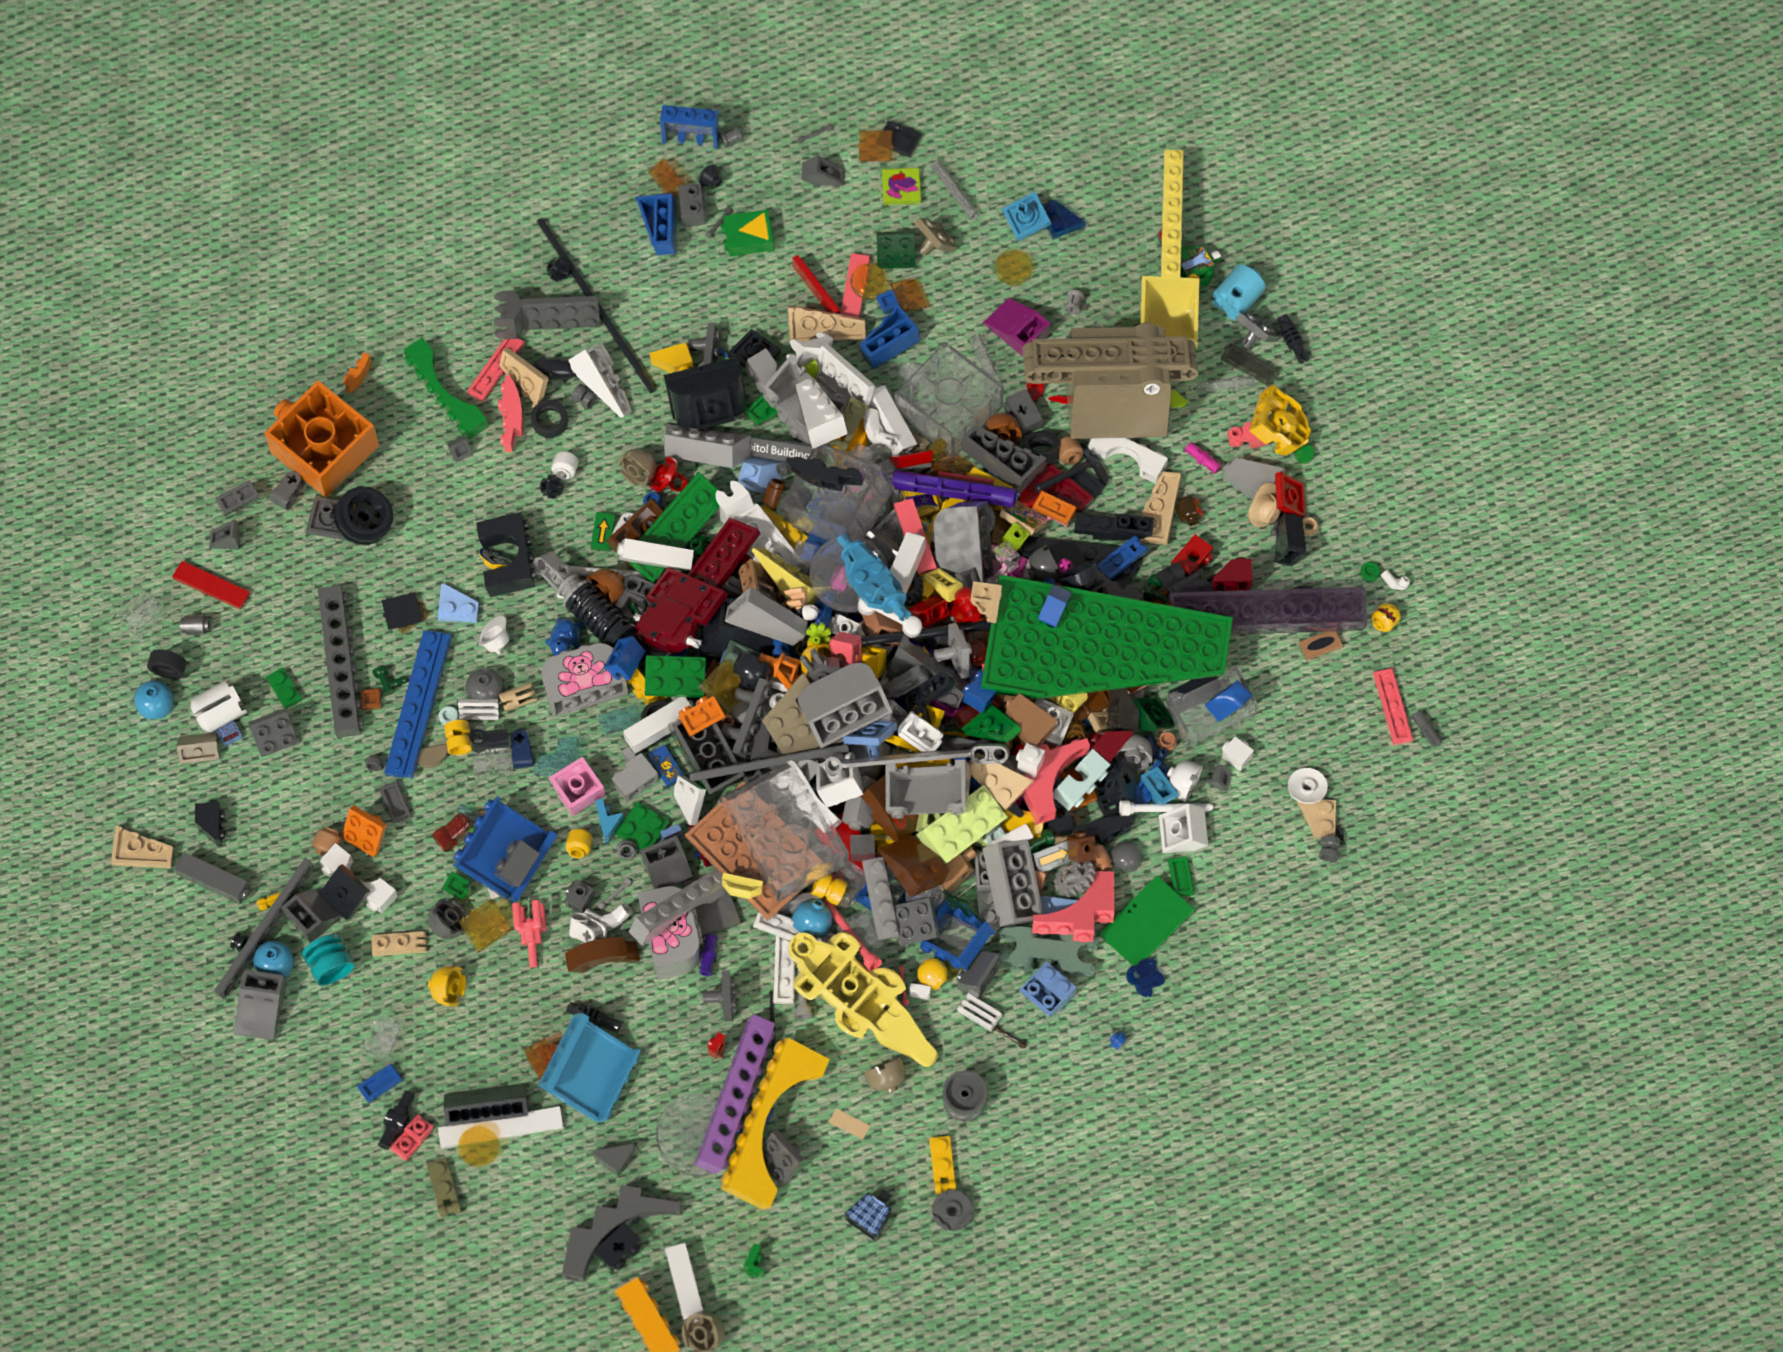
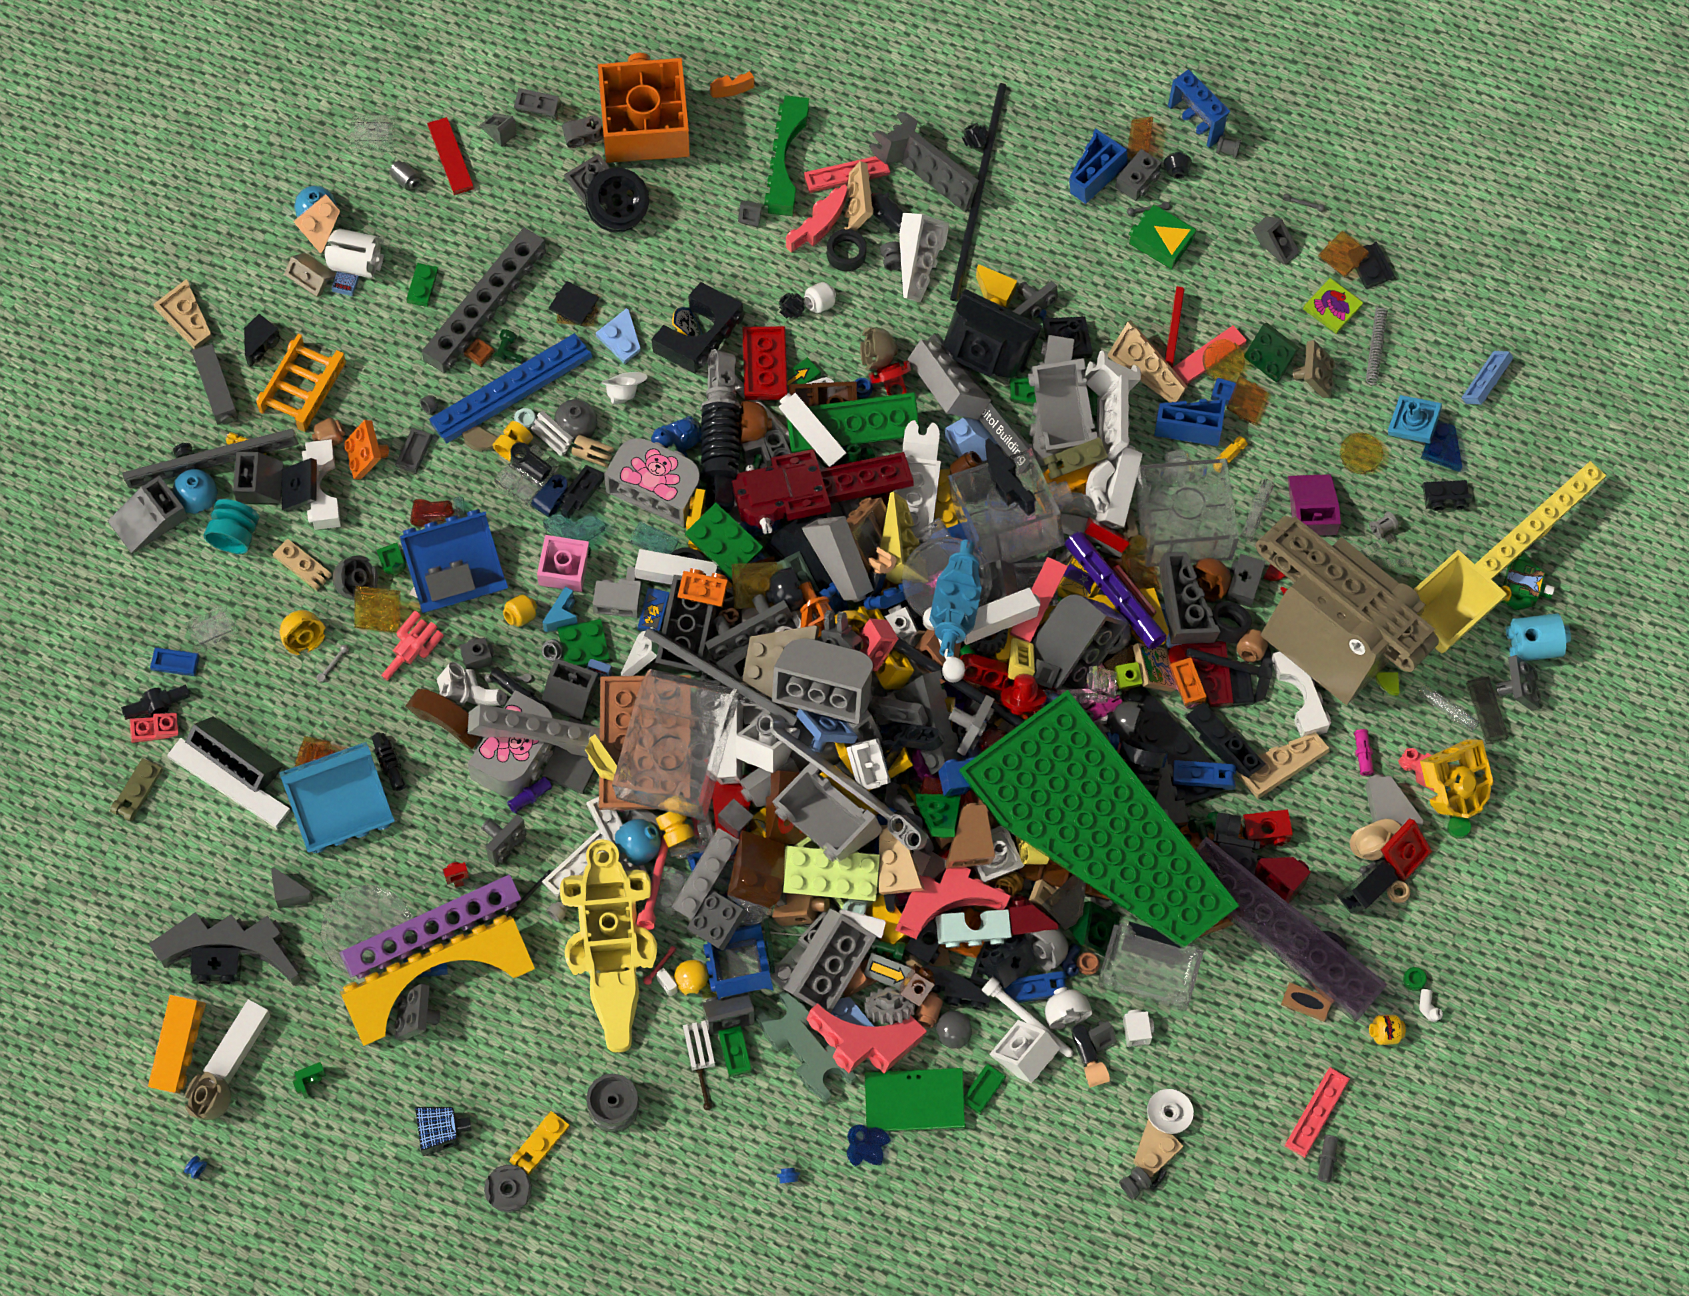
camera: 40 degrees right, 0 degrees up
(166, 664) = (350, 186): black tyre -> none
(170, 706) = (318, 222): none -> light nougat wing
(273, 732) = (374, 310): dark grey plate -> none
(290, 828) = (313, 398): none -> light orange fence
(478, 1146) = (194, 781): clear yellow tile -> none
(490, 1005) = (322, 676): none -> light grey hinge
(537, 729) = (581, 490): none -> black hinge
(572, 540) = (764, 363): none -> red tile
(624, 658) = (698, 490): blue hinge -> none
(624, 895) = (511, 685): none -> black pin
(810, 612) = (882, 583): white hinge -> none
(811, 368) = (1096, 390): lime tile -> none
(818, 634) = (870, 607): lime plant -> none
(820, 414) = (1054, 427): white wedge -> none
(849, 1123) = (501, 1038): tan sticker -> none
(886, 1076) = (566, 1026): dark tan cylinder -> none
(931, 338) = (1233, 449): none -> yellow axle
(987, 599) = (1035, 699): tan wing -> none
(1005, 995) = (734, 1051): none -> green plate
(1030, 760) = (938, 869): white brick -> none
(1044, 150) = (1487, 377): none -> medium blue plate
(1048, 990) = (770, 1080): medium blue slope -> none
(1054, 605) = (1088, 756): slope -> none
(1064, 565) = (1145, 735): dark pink axle -> none
(1092, 249) = (1446, 495): none -> black bracket
(1159, 786) = (1038, 993): dark azure slope -> none
(1189, 510) = (1306, 786): dark brown head -> none
(1228, 700) = (1168, 974): blue piece -> none
(1240, 803) = (1095, 1072): none -> piece
(1292, 338) = (1548, 718): black hinge -> none

